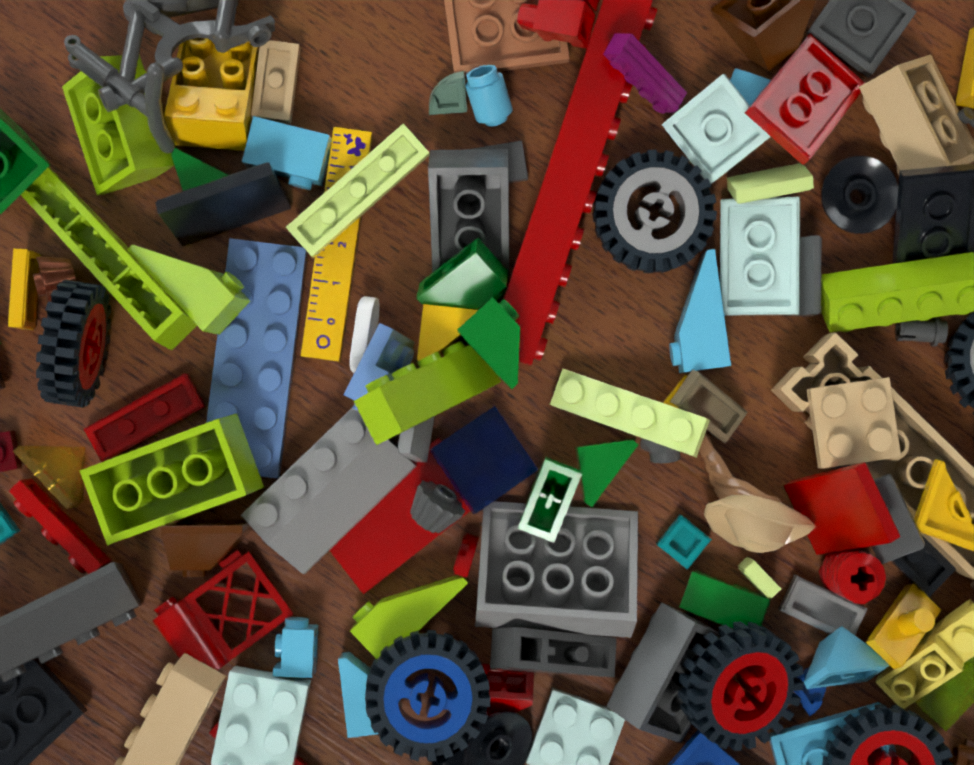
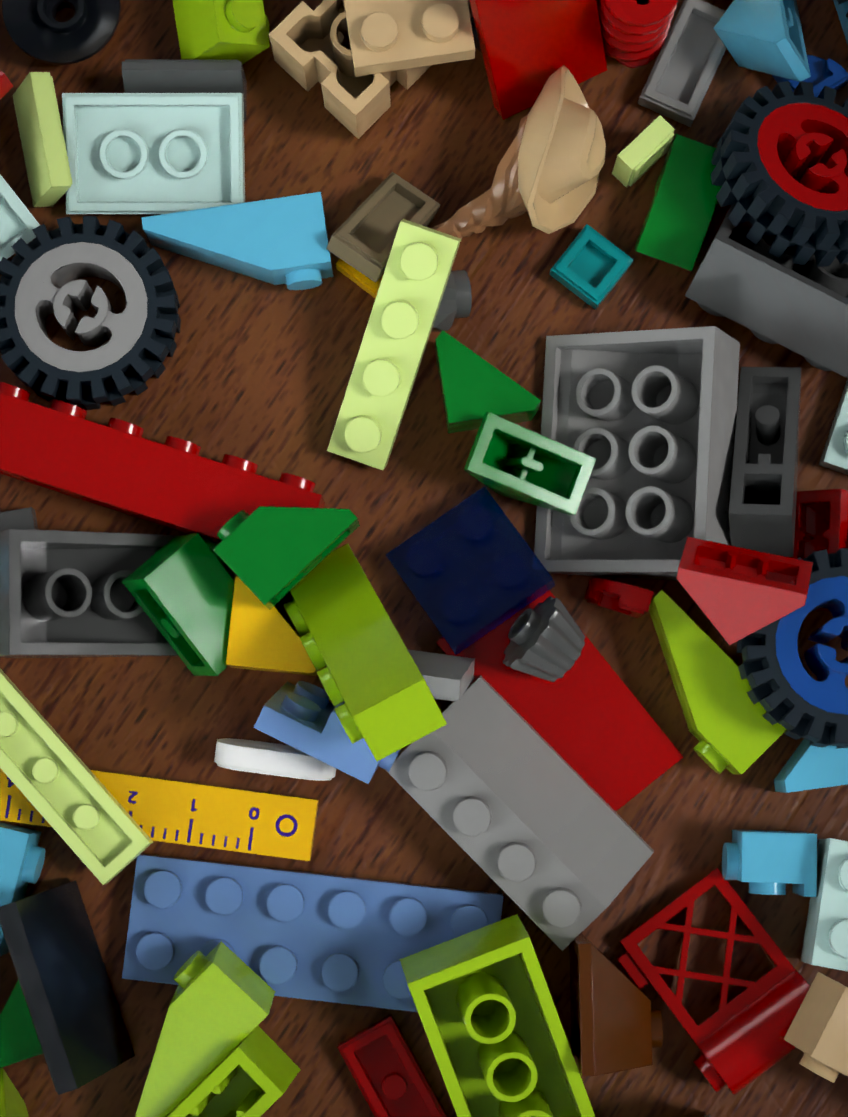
camera: 85 degrees left, 5 degrees down
(465, 634) = (742, 586): none -> red slope

